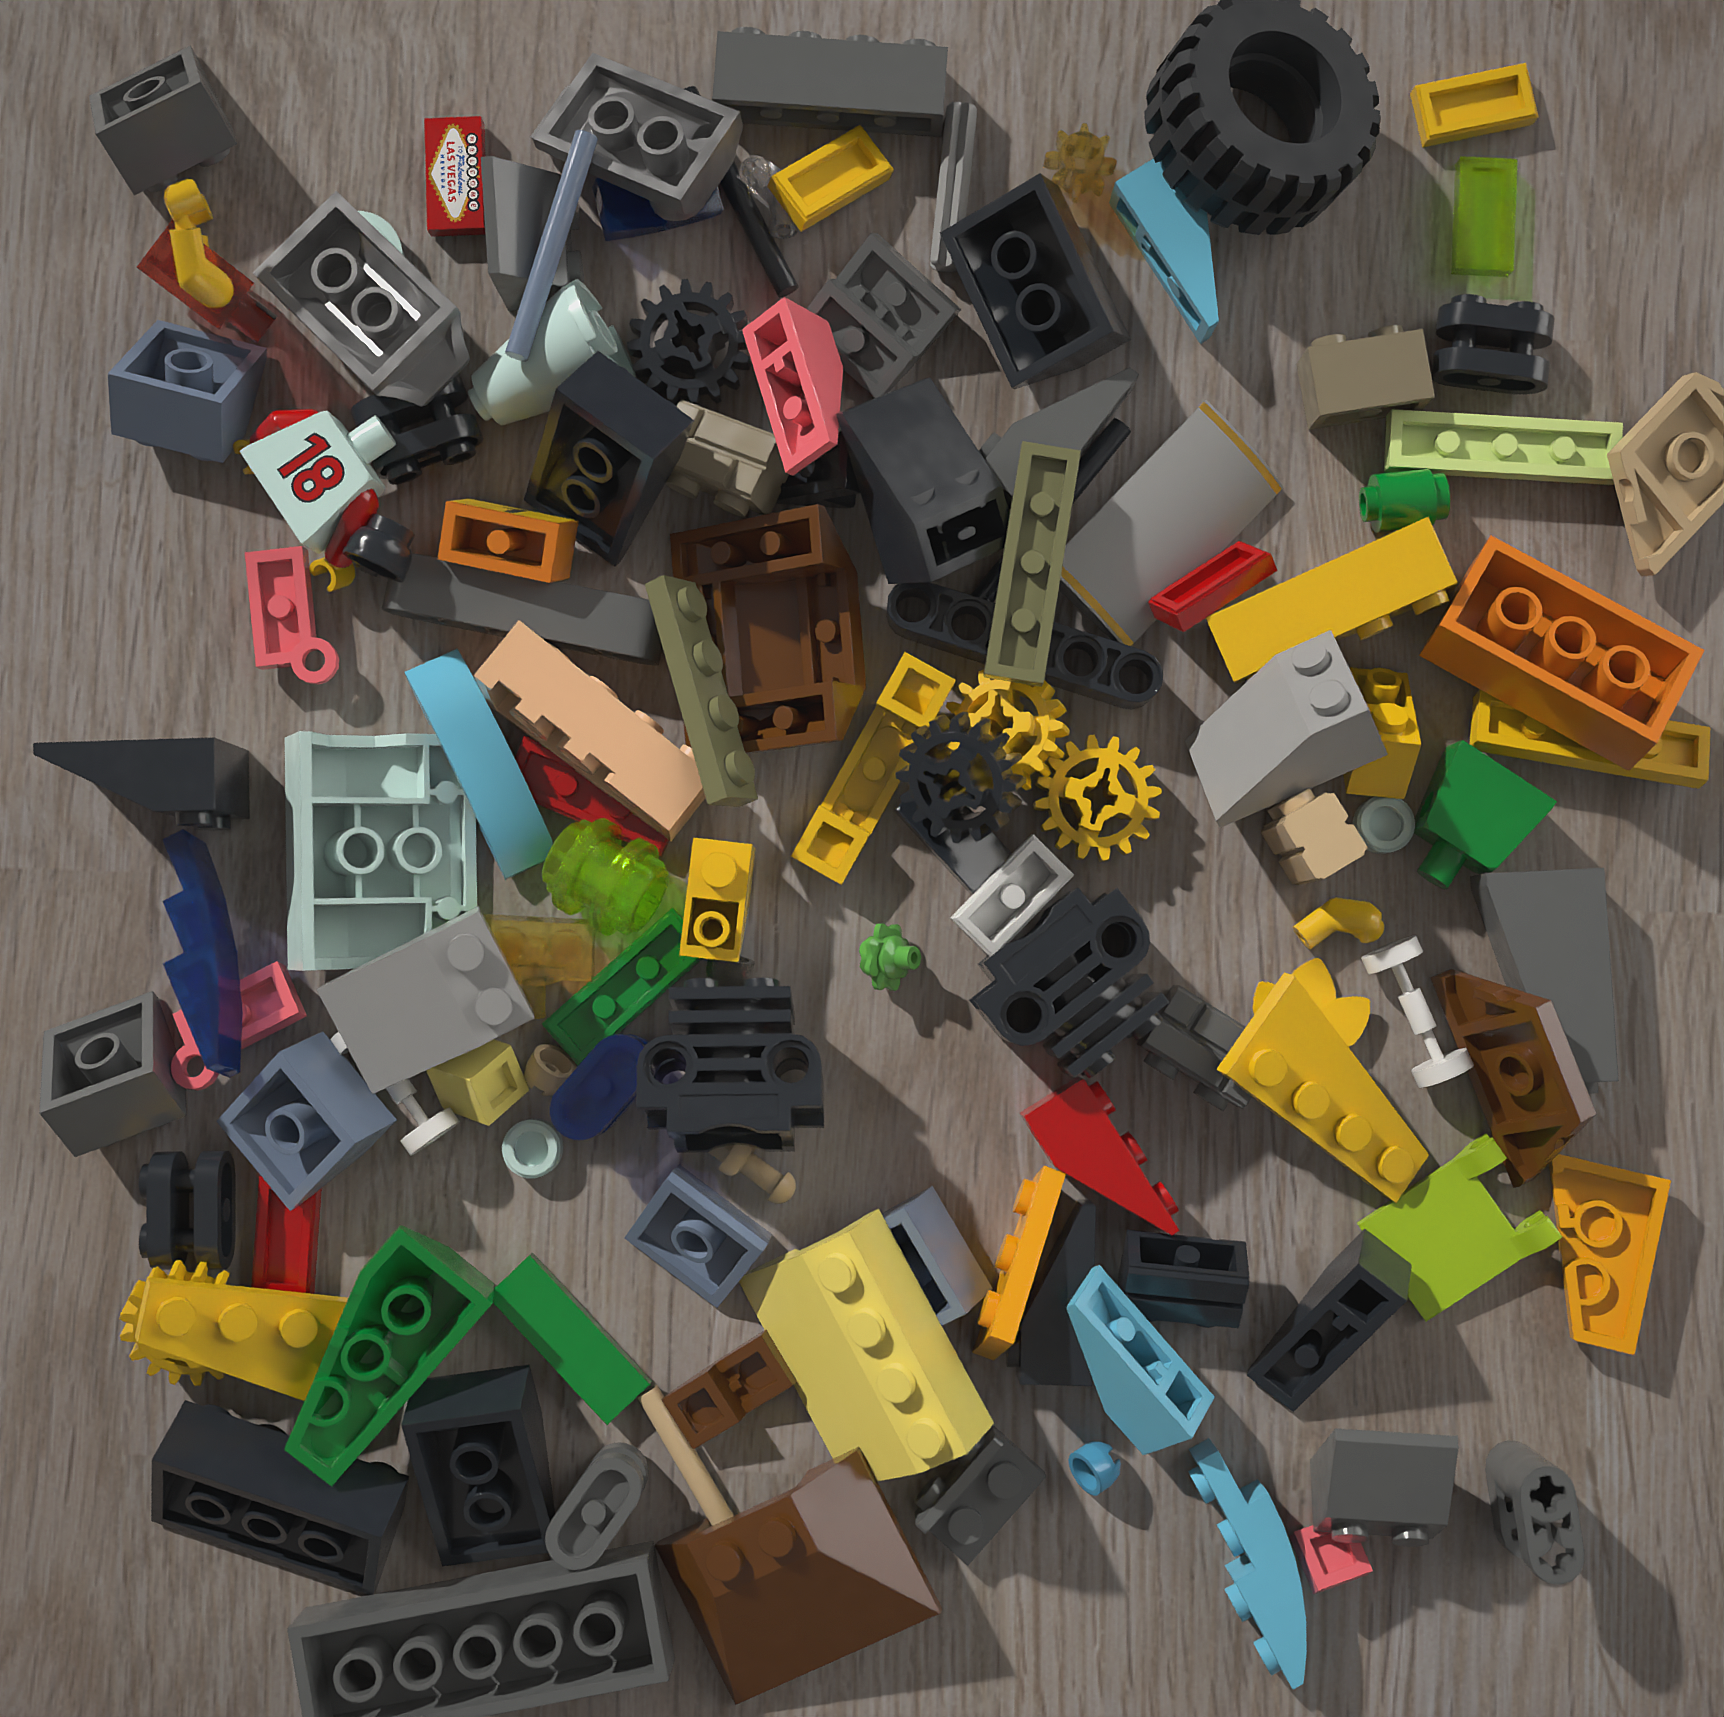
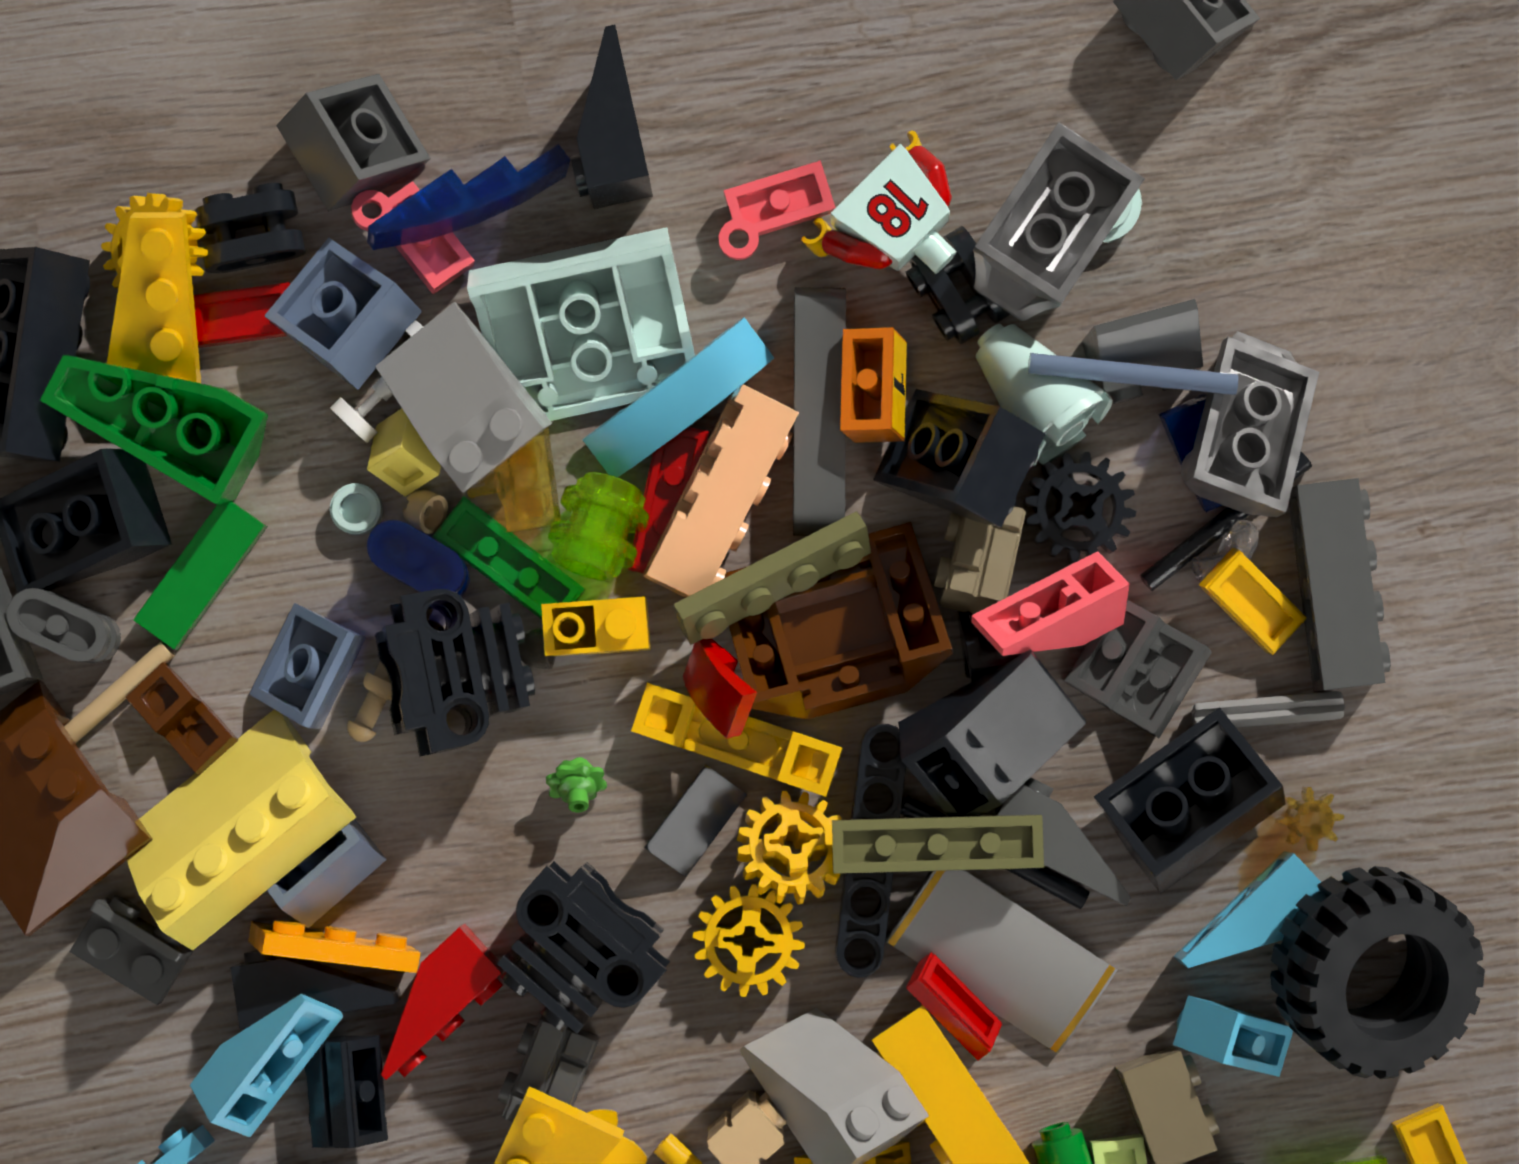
camera: 75 degrees right, 0 degrees up
(185, 391) = (952, 81): sand blue slope -> none
(197, 274) = (1050, 74): torso -> none
(381, 548) = (843, 280): black piece -> none
(454, 175) = (1189, 272): tile -> none
(812, 776) = (716, 688): none -> red slope
(970, 776) = (739, 817): black gear -> none
(1012, 896) = (648, 881): white slope -> none
(1094, 1467) = (172, 1045): dark azure hinge -> none
(1299, 293) = (1232, 1036): none -> medium azure slope

